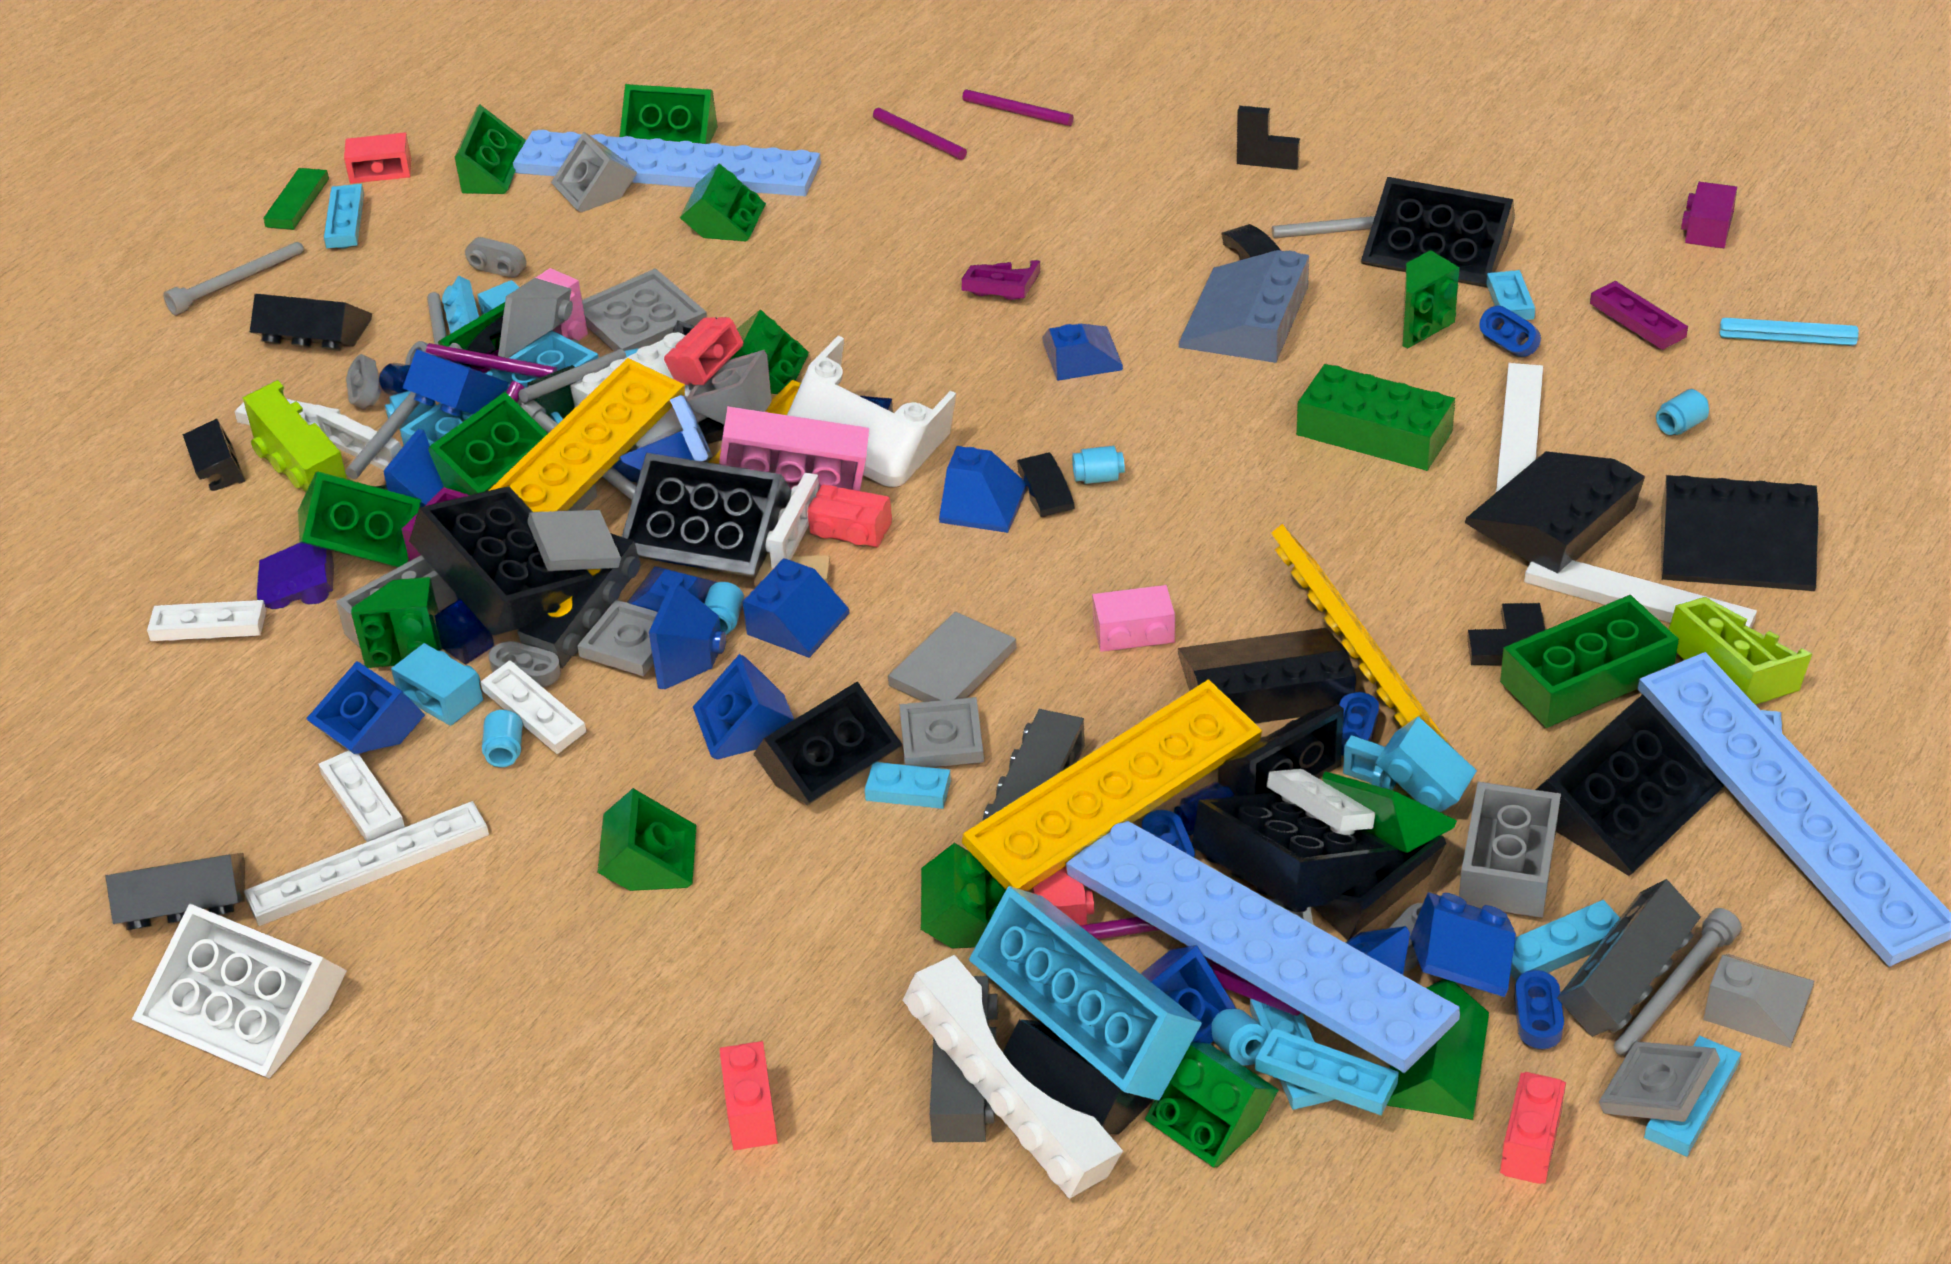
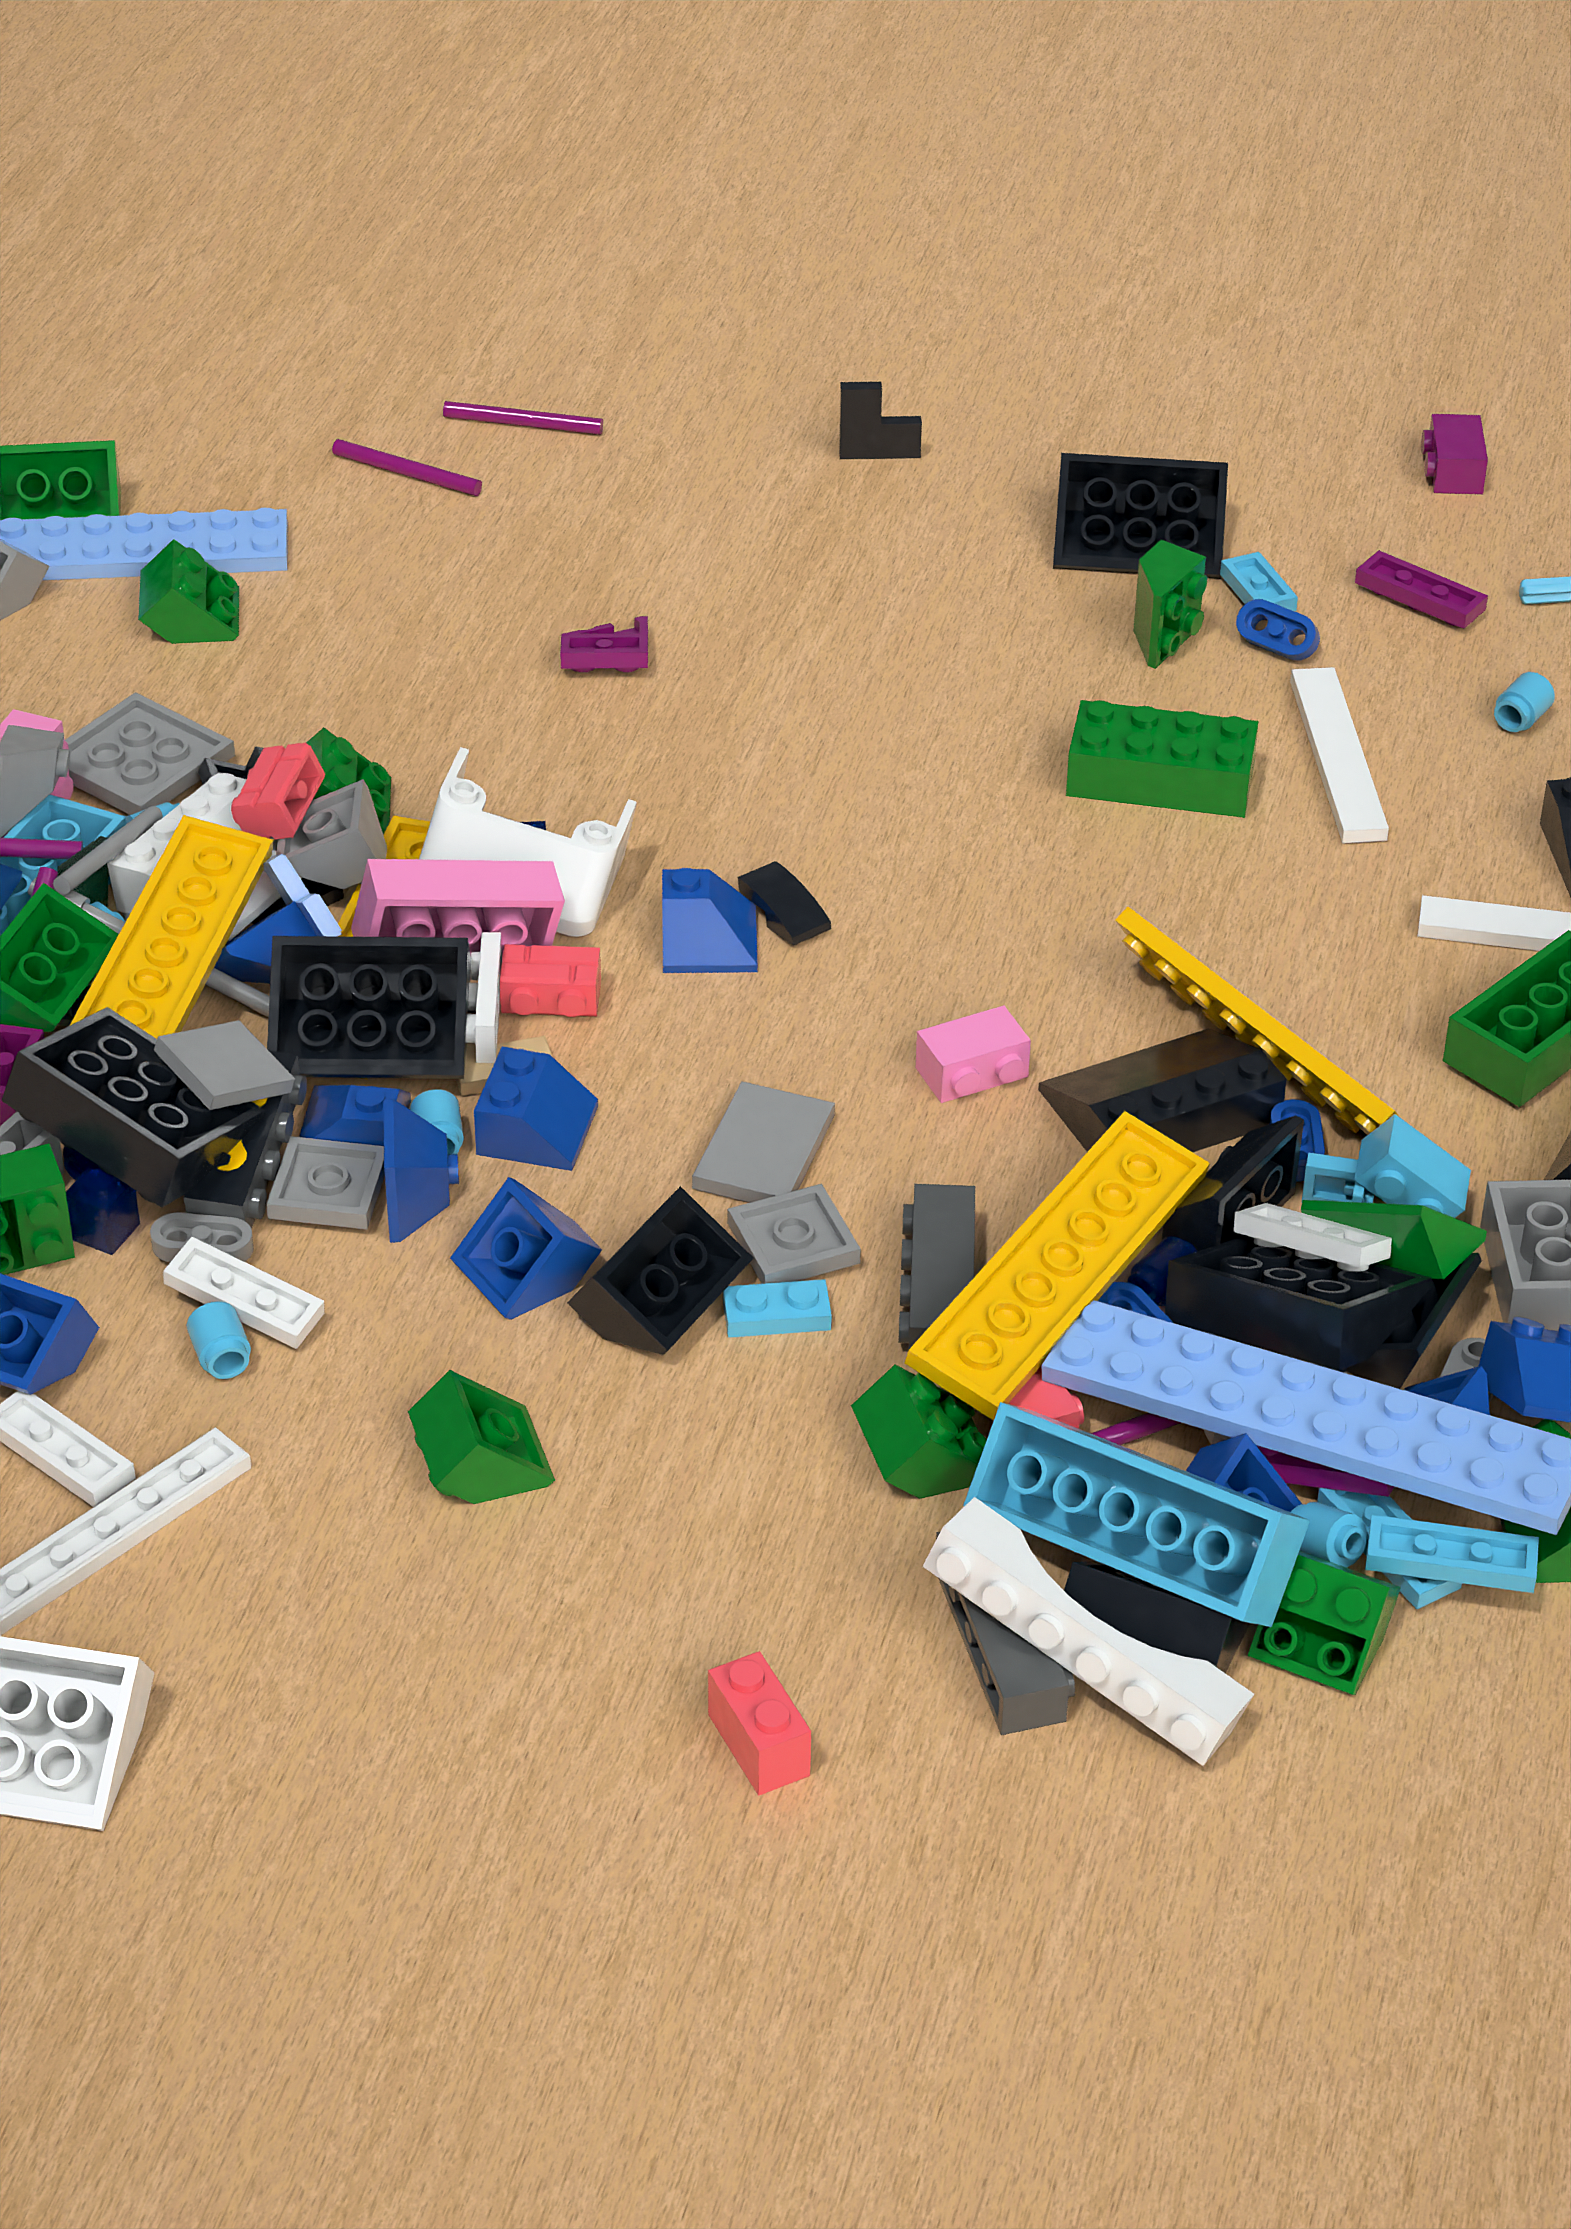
camera: 20 degrees left, 0 degrees up
(438, 683) = (108, 1282): medium azure brick -> none
(1081, 351) = (750, 727): blue slope -> none
(1097, 465) = (841, 868): medium azure brick -> none
(1249, 241) = (914, 562): black slope -> none
(1249, 306) = (940, 640): sand blue slope -> none
(1322, 227) = (990, 527): light grey bar -> none
(1519, 622) = (1439, 993): black tile -> none
(1559, 507) = (1427, 837): black slope -> none

